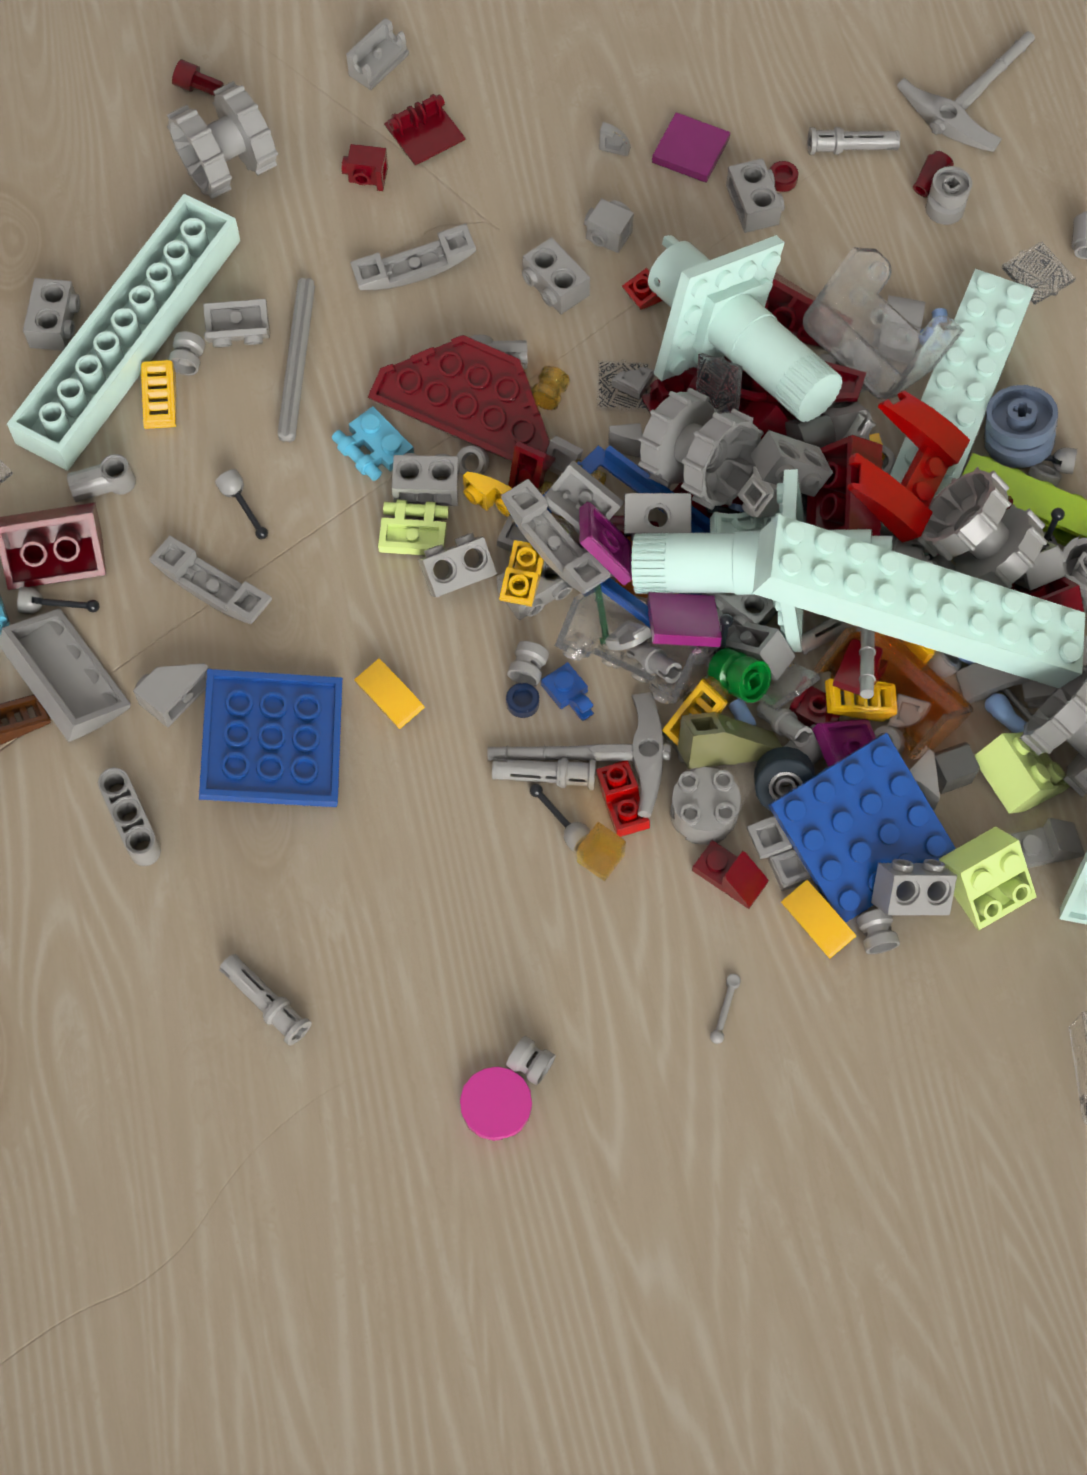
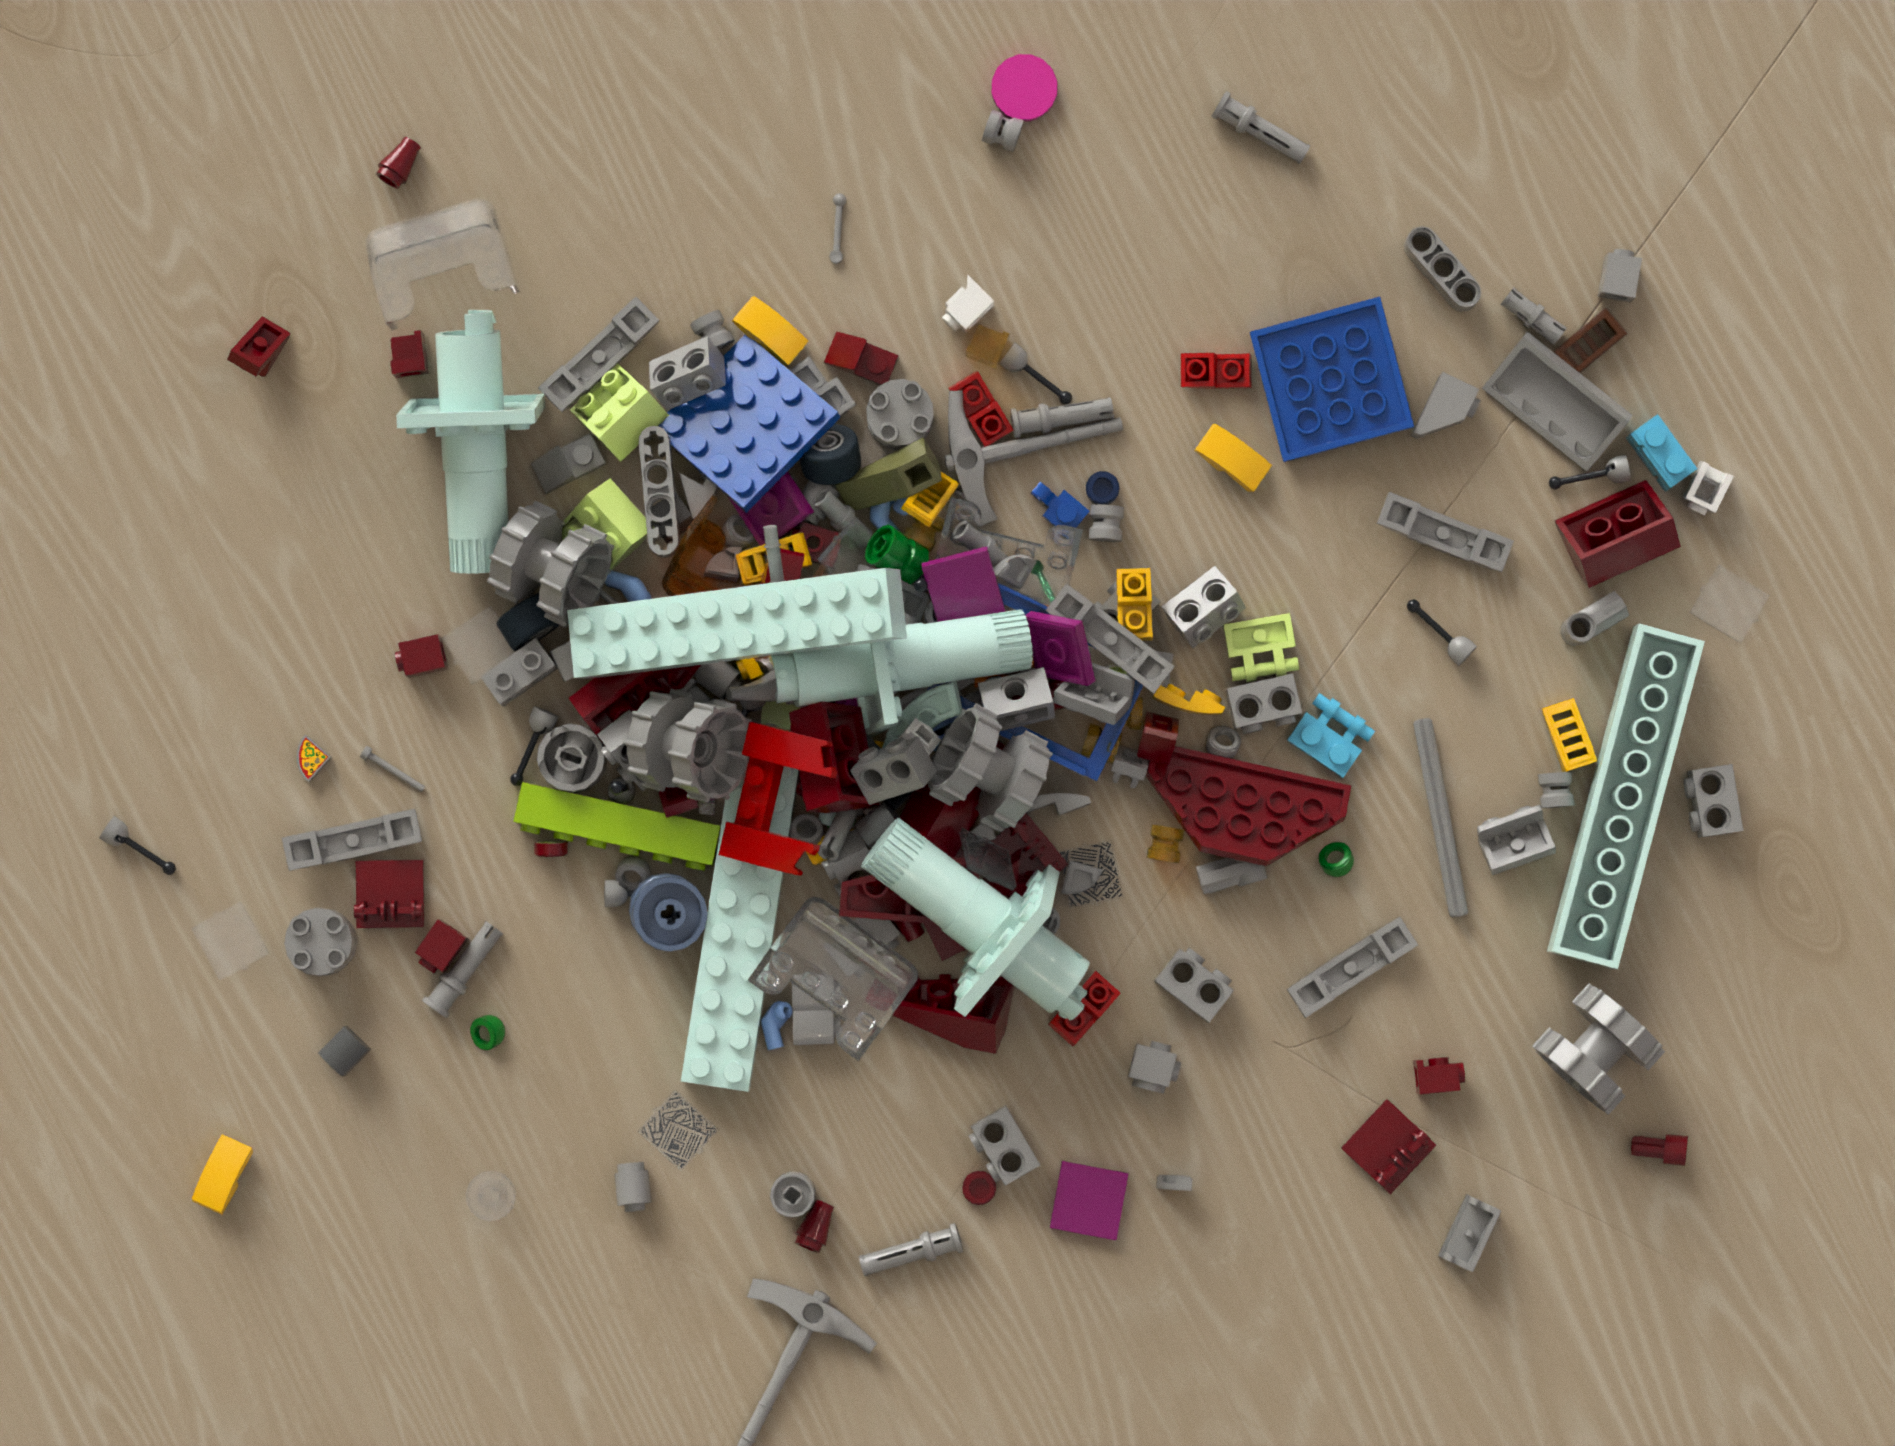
camera: 165 degrees right, 20 degrees up
(57, 755) = (1533, 316): none -> light grey pin
(381, 780) = (1216, 370): none -> red slope
(396, 338) = (1340, 868): none -> green piece
(611, 893) = (967, 306): none -> white window
(960, 780) = (662, 491): none -> light grey beam
(1000, 936) = (599, 355): none -> light grey slope

